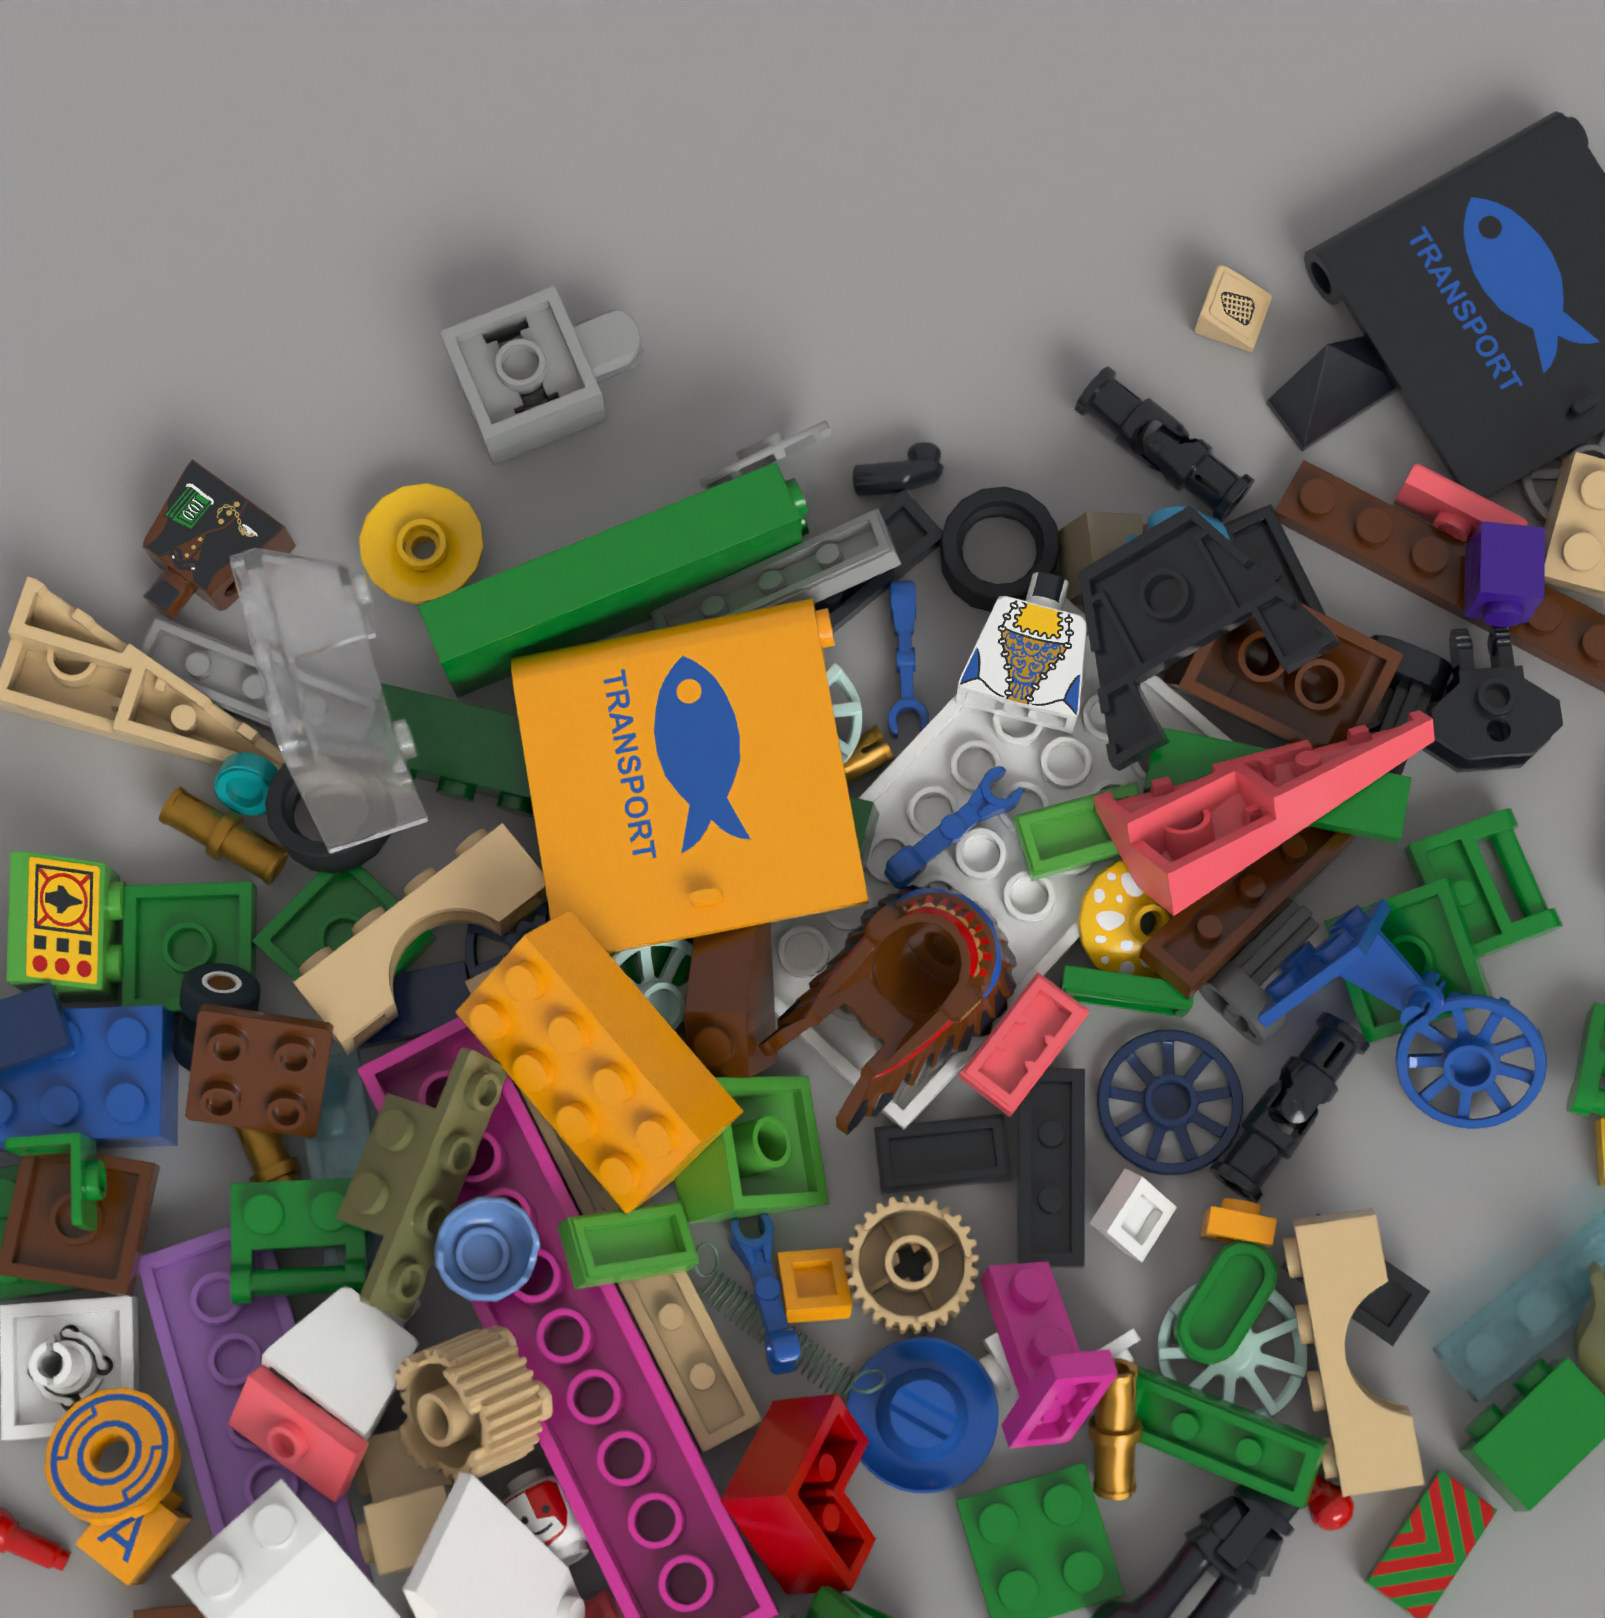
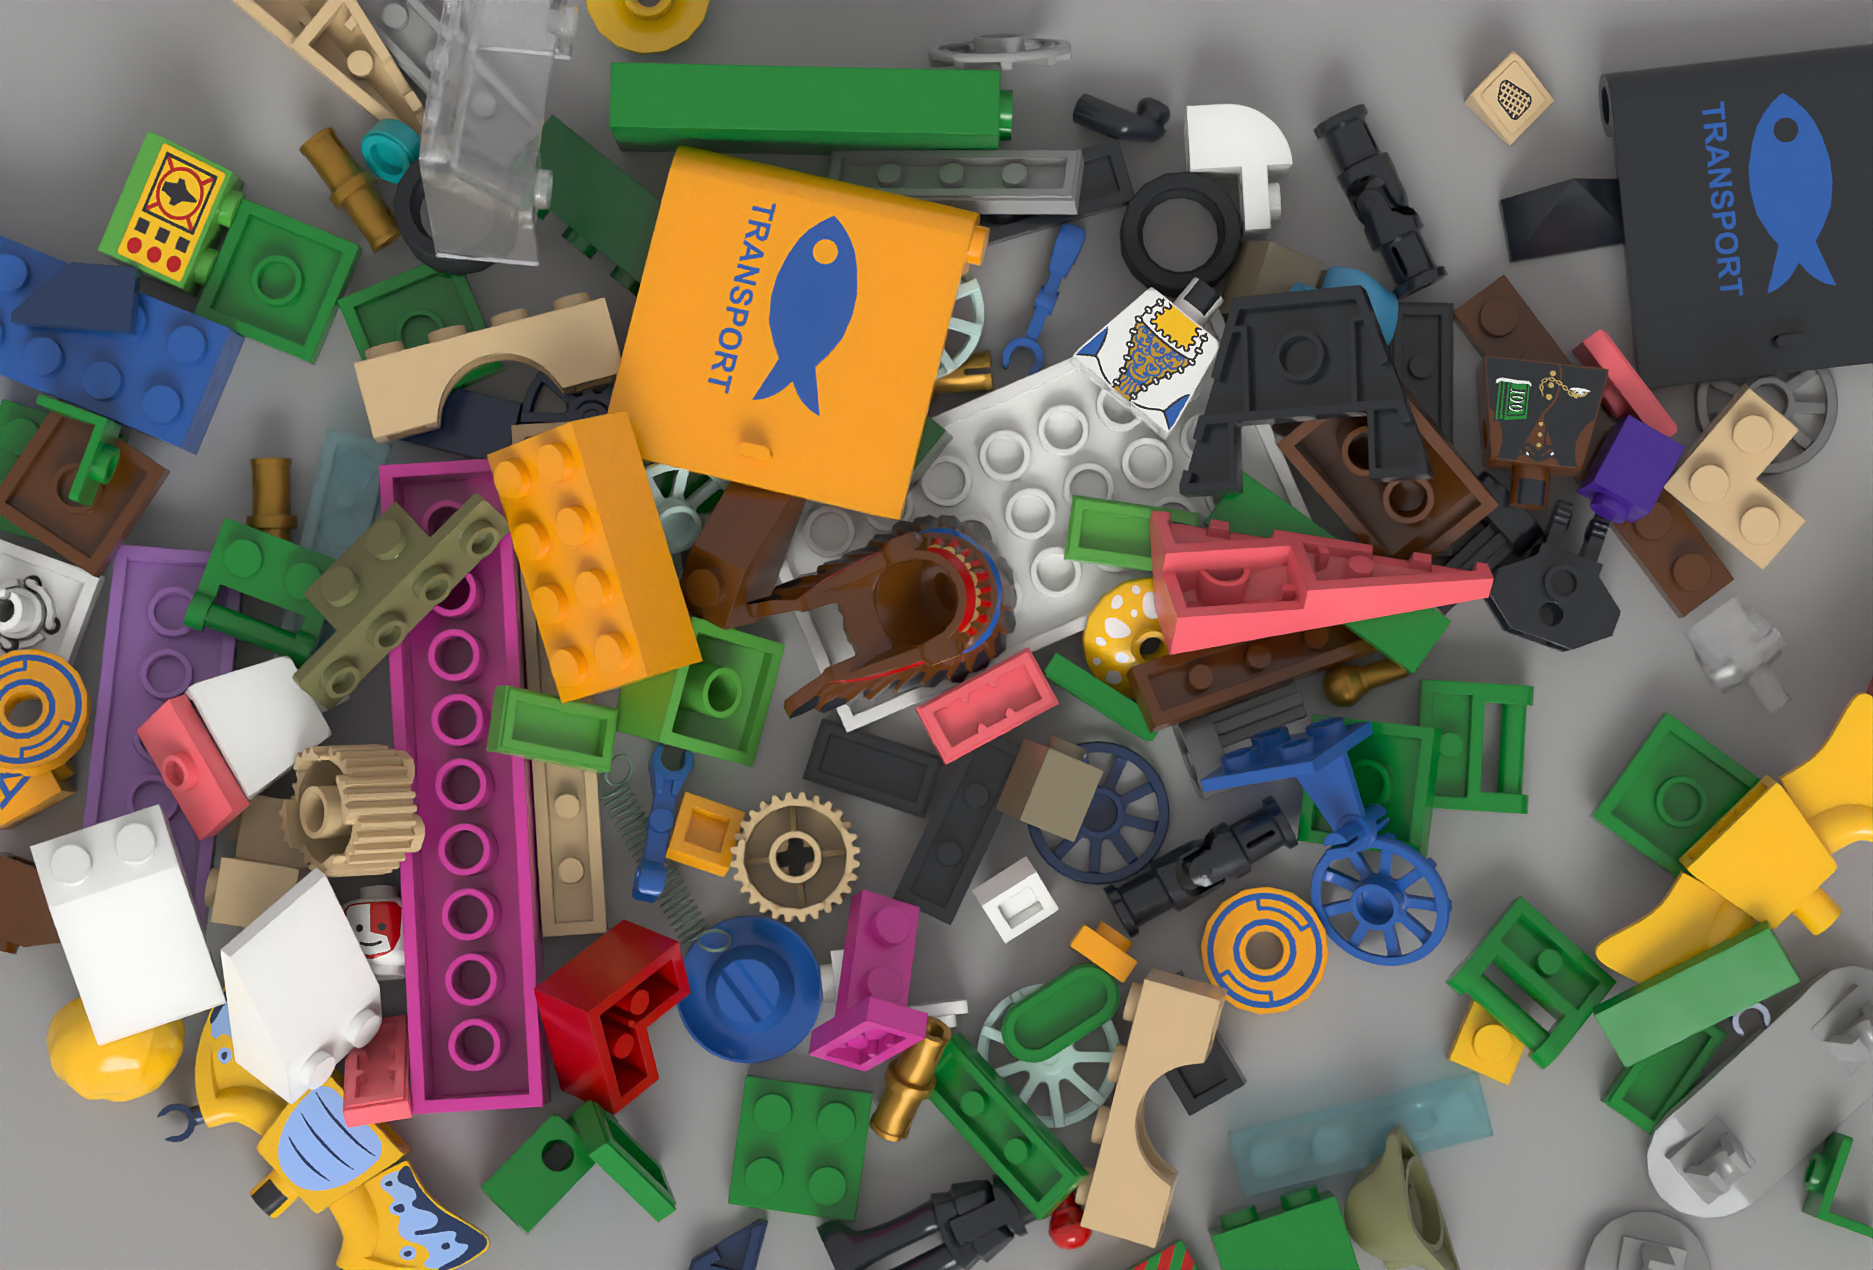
camera: 25 degrees right, 10 degrees up
(248, 1063) = (280, 415): reddish brown plate -> none
(486, 1248) = (422, 681): medium blue hair -> none
(982, 805) = (1049, 471): blue piece -> none
(1017, 449) = (1242, 145): none -> white brick
(1118, 1092) = (1050, 787): none -> dark tan brick
(1343, 880) = (1348, 683): none -> pearl gold piece
(1399, 566) = (1536, 421): none -> torso
(1415, 1137) = (1301, 940): none -> light orange tile

